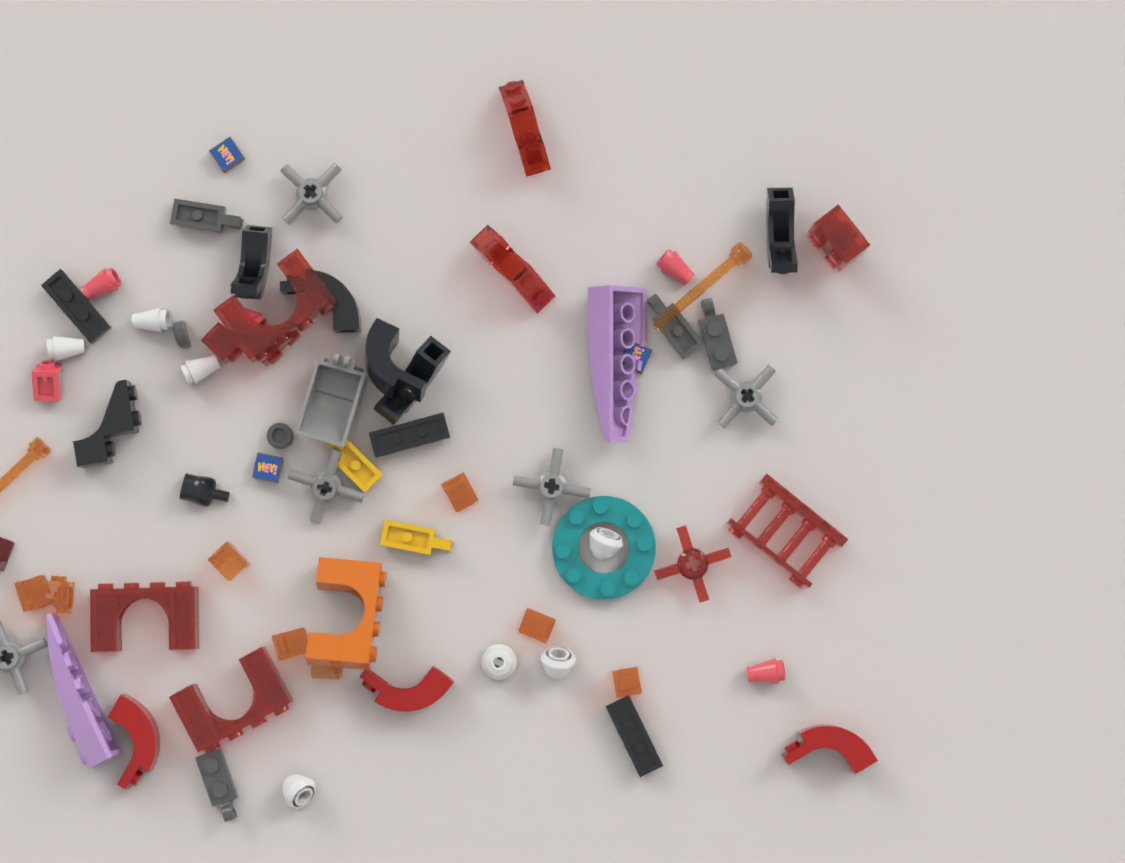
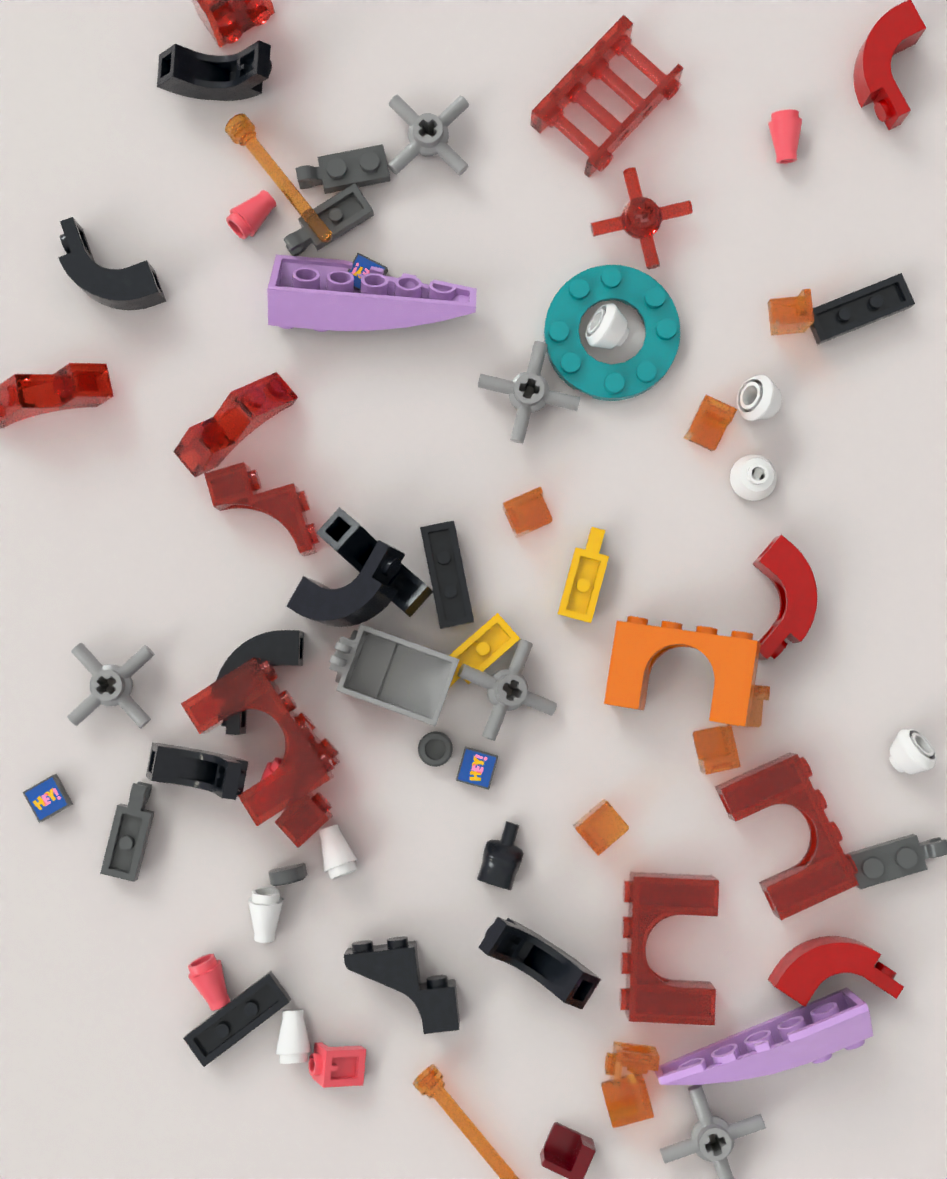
camera: 85 degrees left, 0 degrees up
(130, 523) = (540, 960): none -> black arch
(452, 312) = (237, 489): none -> clear red arch
(609, 176) = (121, 289): none -> black arch

